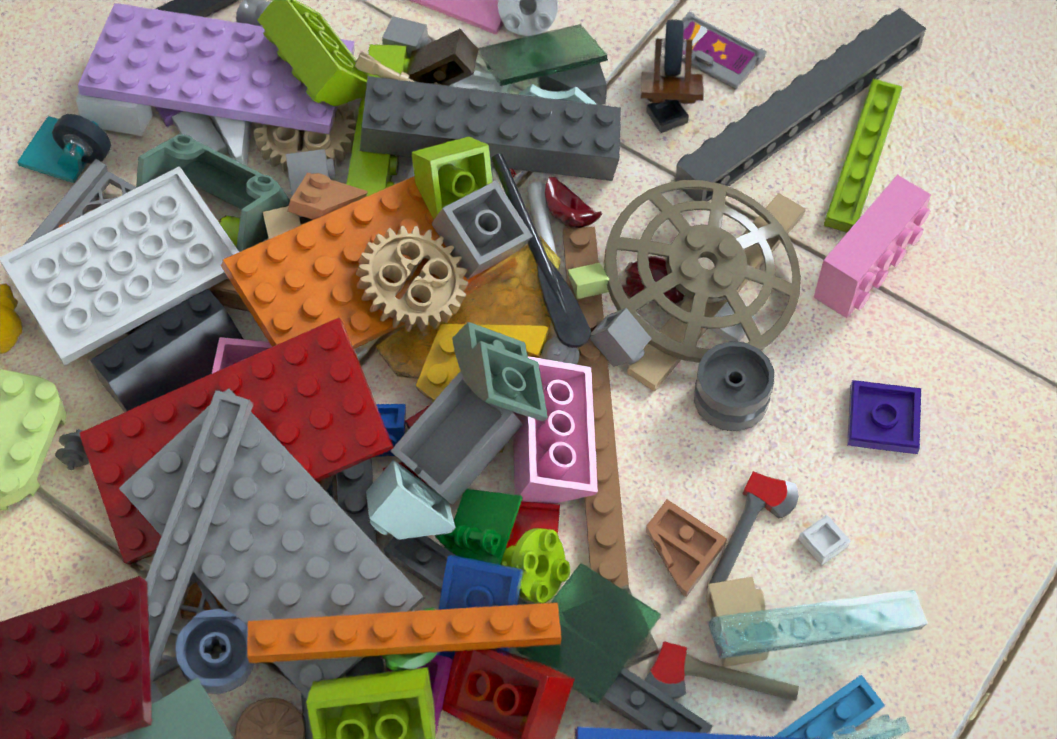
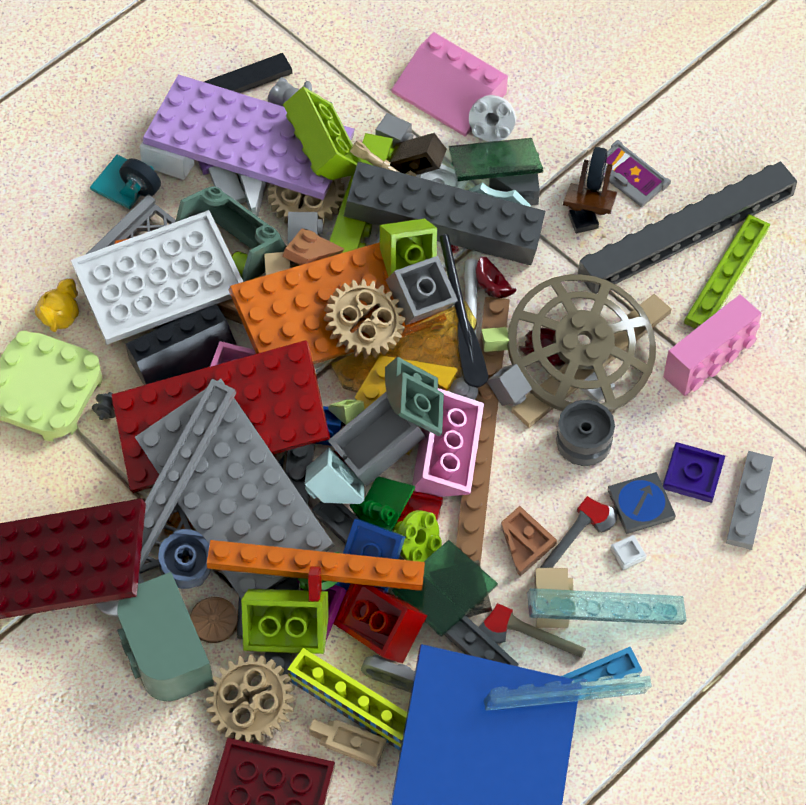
camera: 10 degrees right, 0 degrees up
(408, 404) = (347, 409): none -> yellowish green slope
(409, 662) = (315, 583): none -> red tile
(826, 469) = (641, 503): none -> tile
(966, 443) = (749, 500): none -> light grey plate

